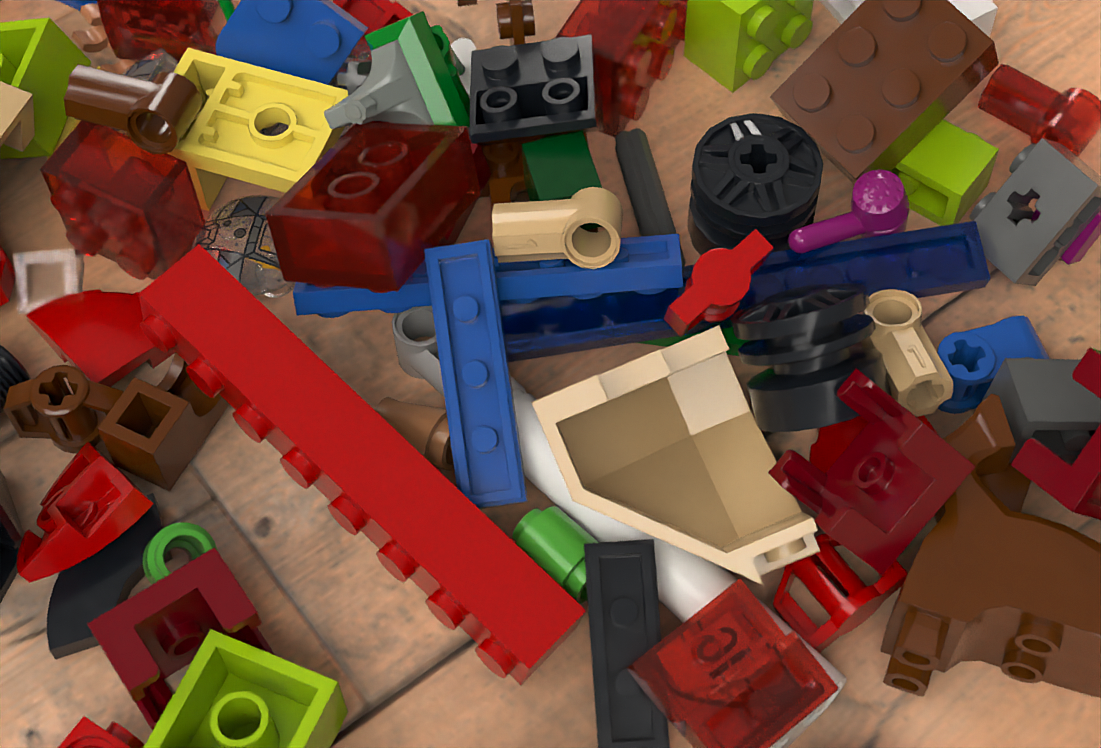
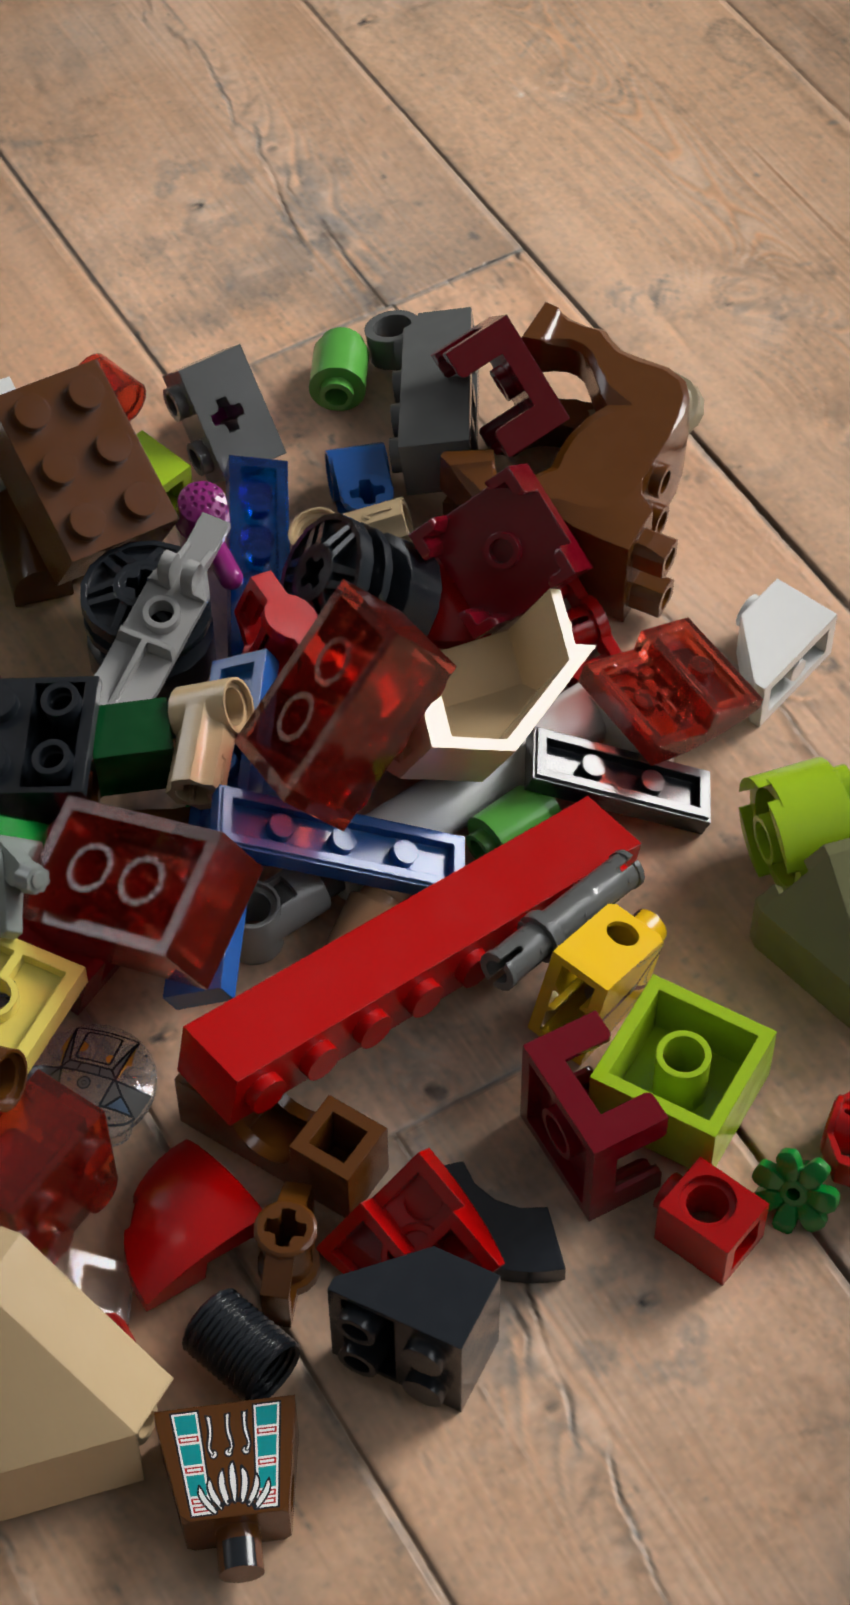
camera: 85 degrees left, 5 degrees down
(182, 536) = (496, 1122): bright green brick -> none
(346, 624) = (610, 954): none -> yellow torso
(396, 585) = (545, 930): none -> dark grey pin
(570, 314) = (344, 705): none -> clear red brick
(679, 178) = (146, 648): none -> light grey piece

